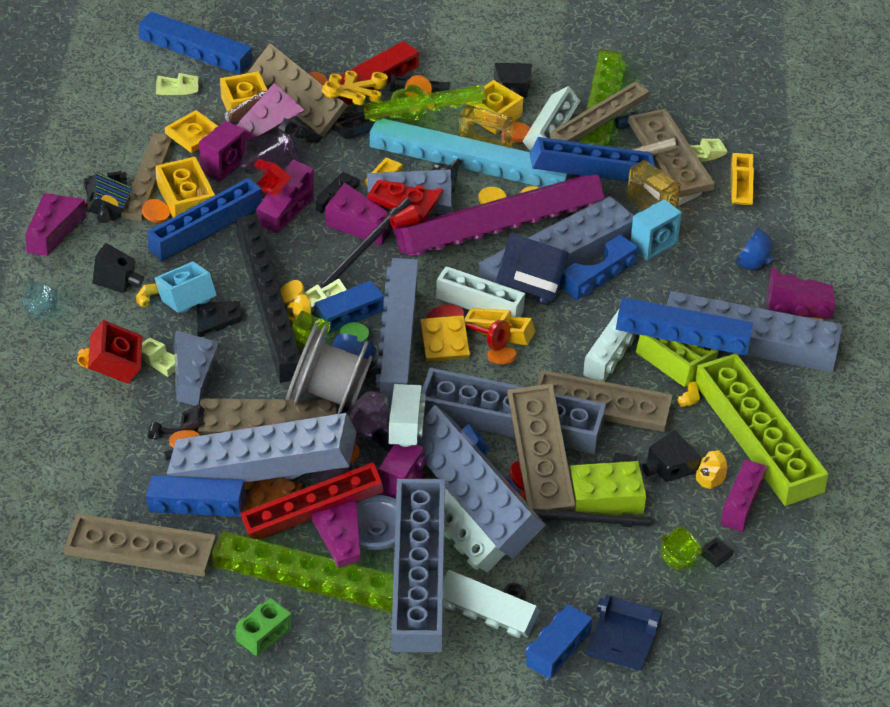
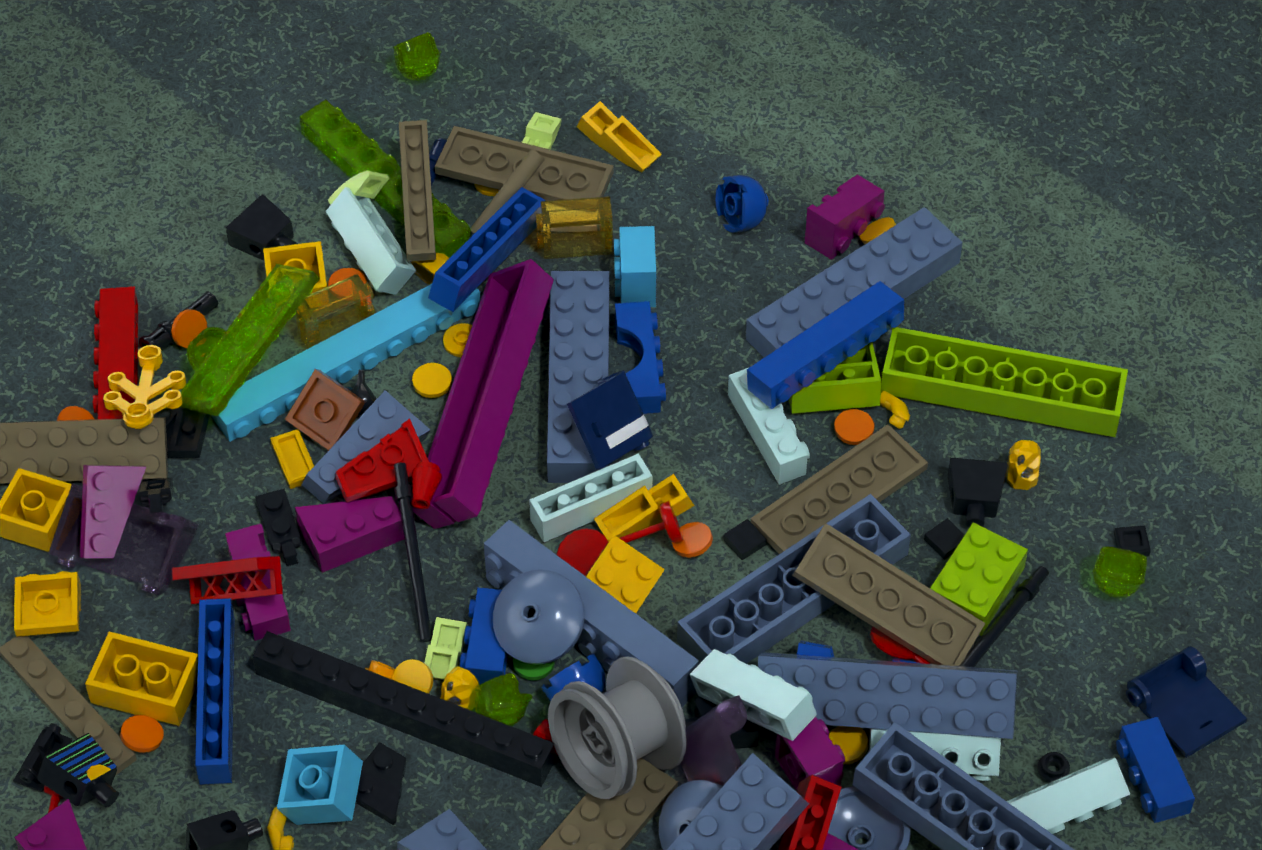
camera: 50 degrees left, 10 degrees up
(222, 151) = (115, 595): magenta brick -> none
(282, 276) = (381, 669): none -> light orange plate
(370, 306) = (556, 619): none -> sand blue dish
(423, 158) = (324, 409): none -> dark orange plate
(527, 377) = (744, 539): none -> black tile
(581, 94) = (364, 184): none -> yellowish green slope
(657, 382) = (853, 426): none -> orange piece
(695, 72) = (417, 57): none -> clear neon green helmet
(743, 495) = (1082, 462): magenta brick -> none

